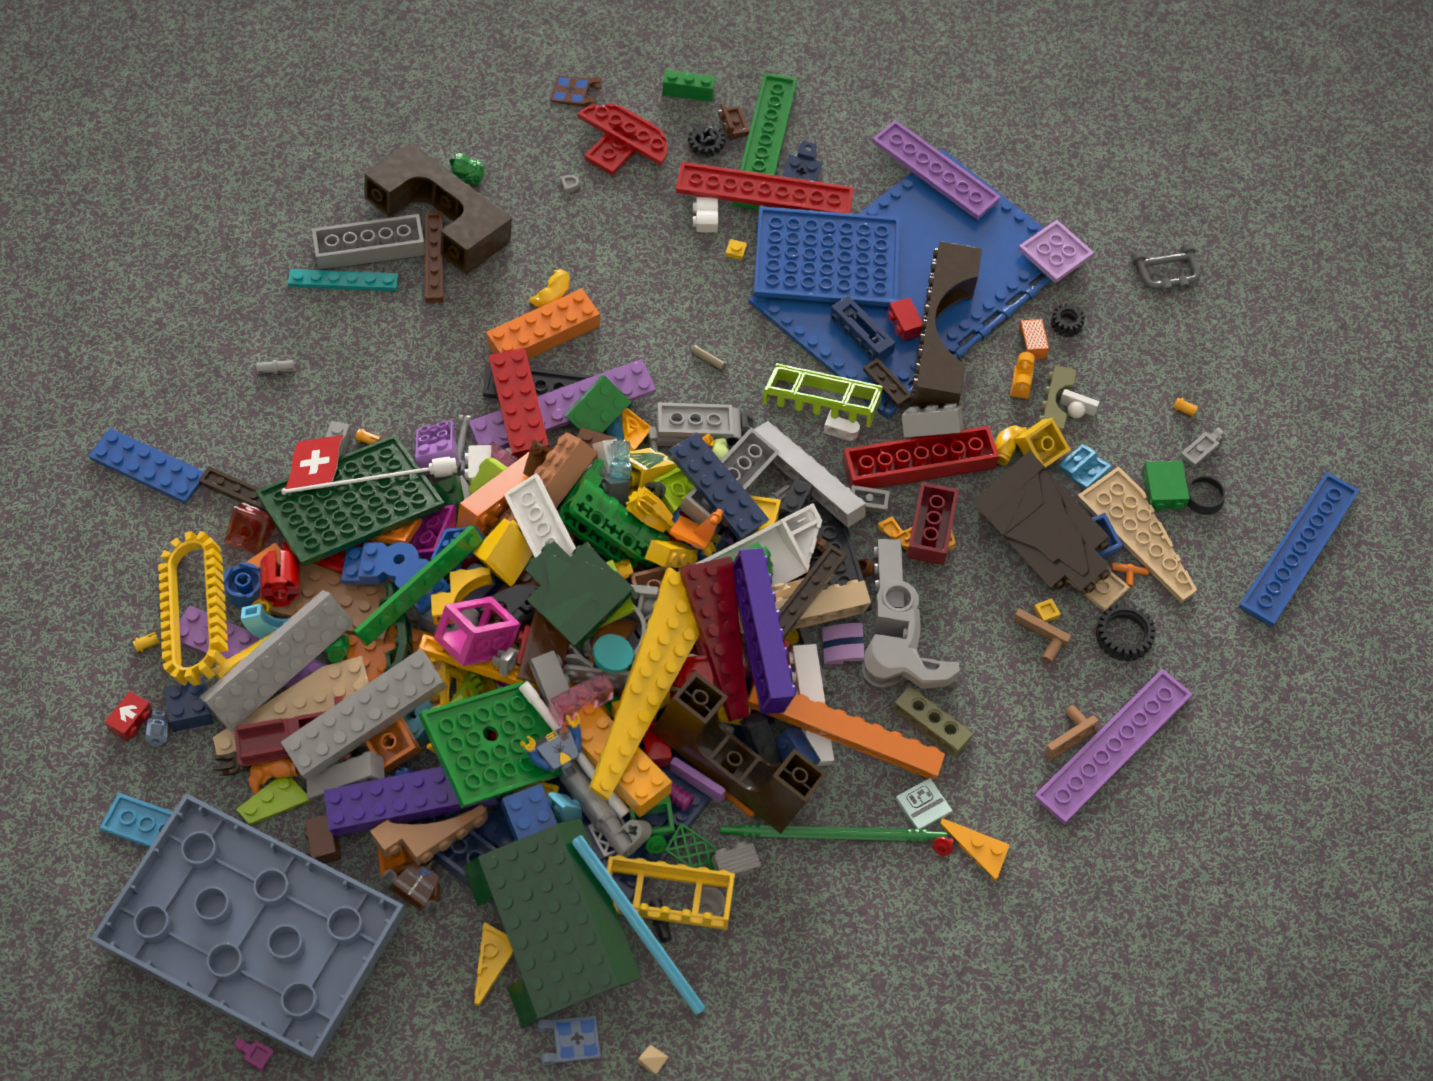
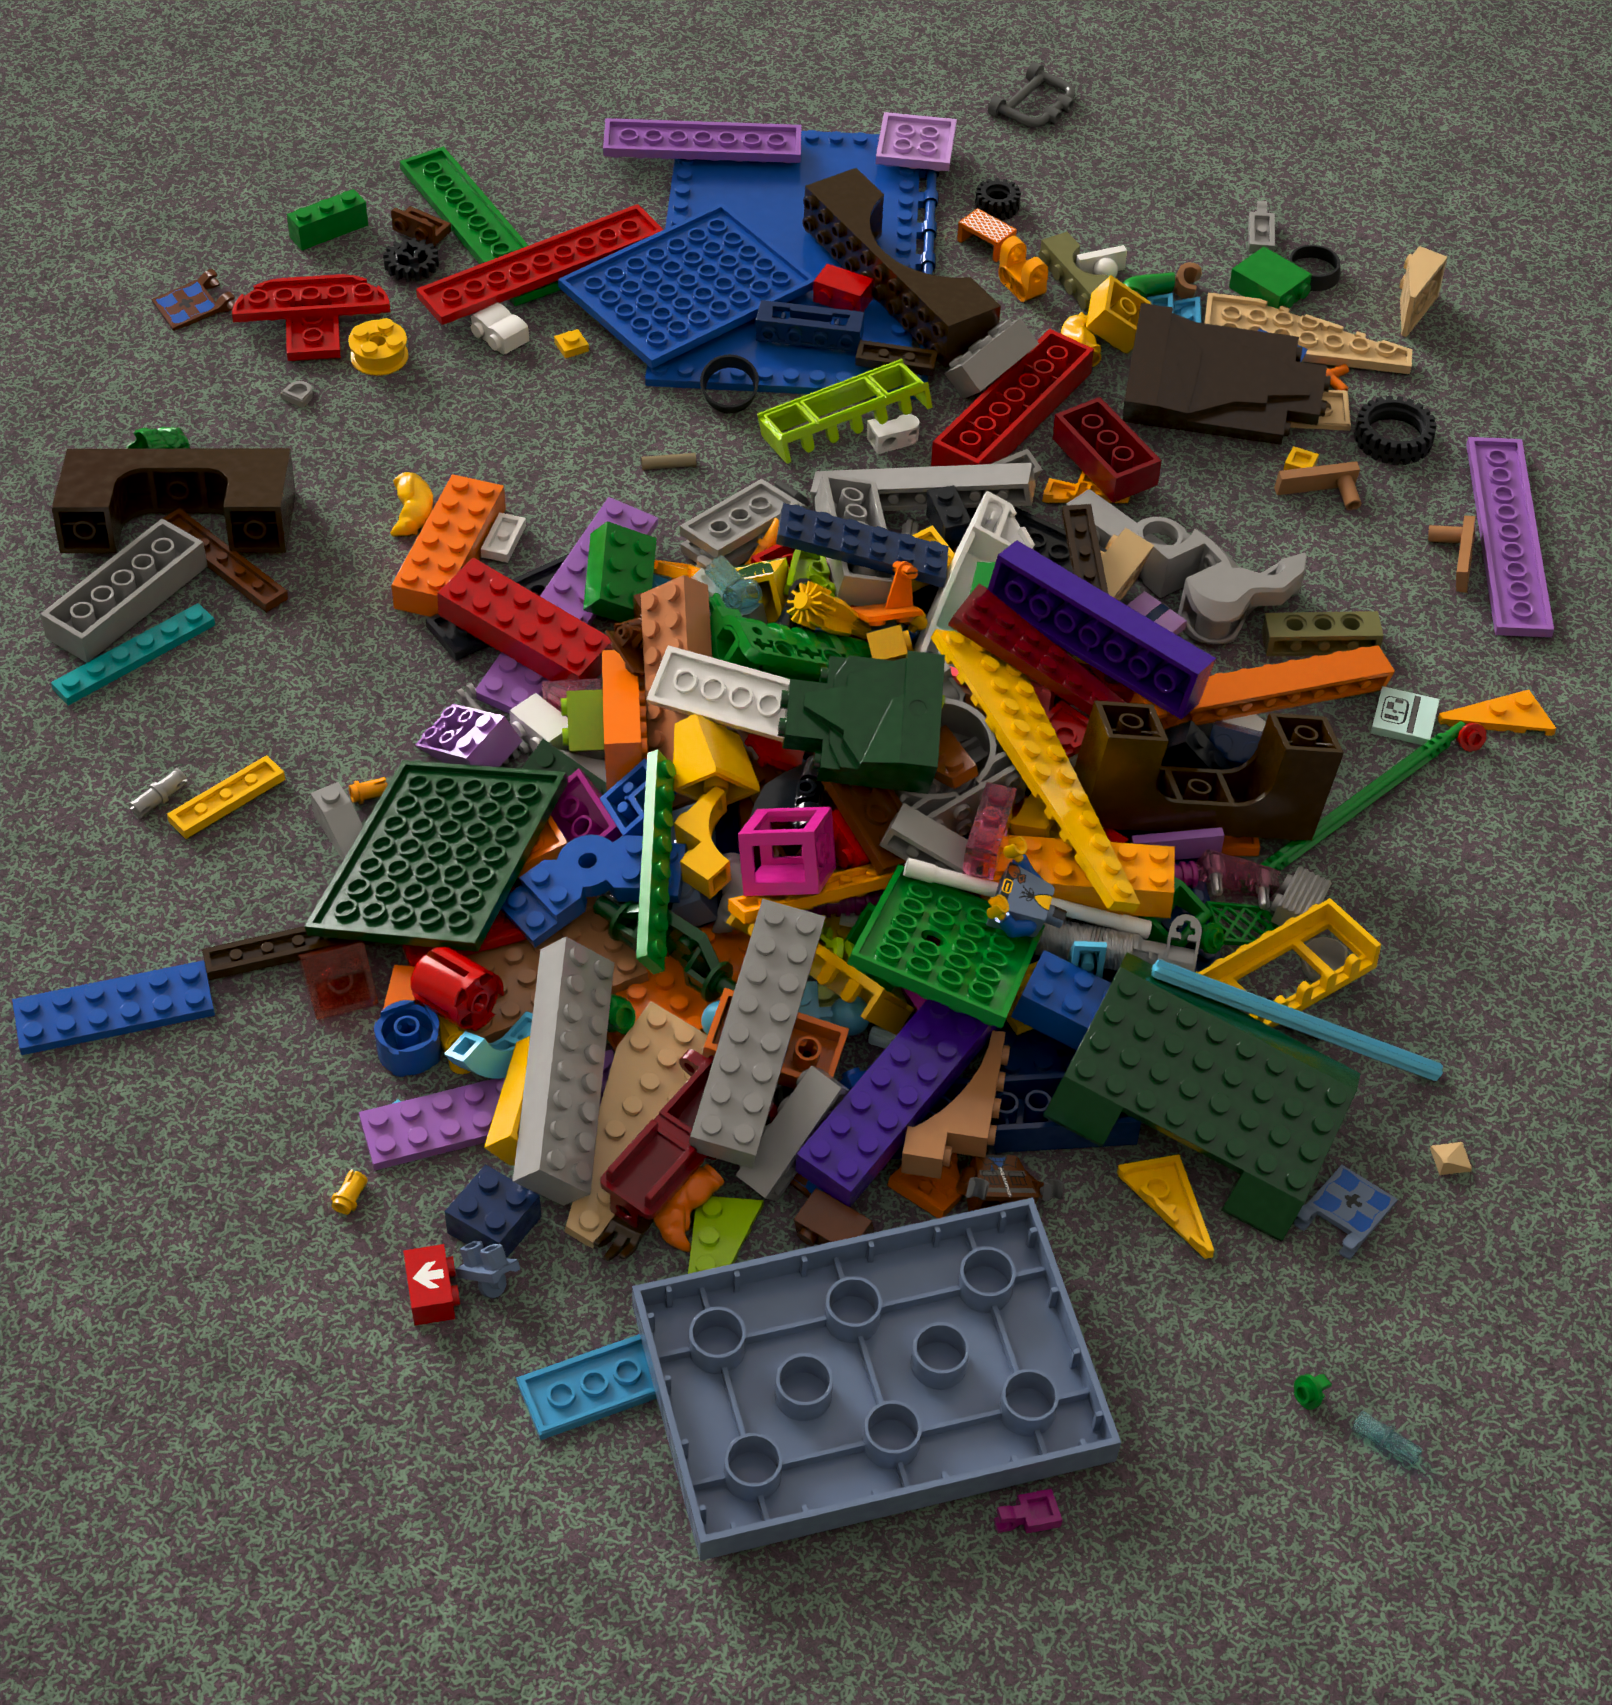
camera: 40 degrees left, 10 degrees down
(170, 608) = (402, 1062): yellow piece -> none
(302, 392) = (226, 797): none -> yellow plate
(317, 461) = (357, 849): flag -> none
(505, 660) = (850, 862): light grey tile -> none
(577, 342) = (503, 537): none -> white plate
(612, 653) = (976, 755): teal tile -> none
(633, 183) = (378, 347): none -> yellow wheel
(717, 821) = (1238, 875): none -> clear pink piece
(776, 320) = (729, 361): none -> black tyre
(804, 162) = (547, 217): dark blue plate -> none
(1080, 434) = (1163, 283): none -> piece
(1185, 407) = (1201, 205): light orange pin -> none
(1245, 554) = (1420, 286): none -> tan slope
(1299, 549) = (1465, 281): blue plate -> none

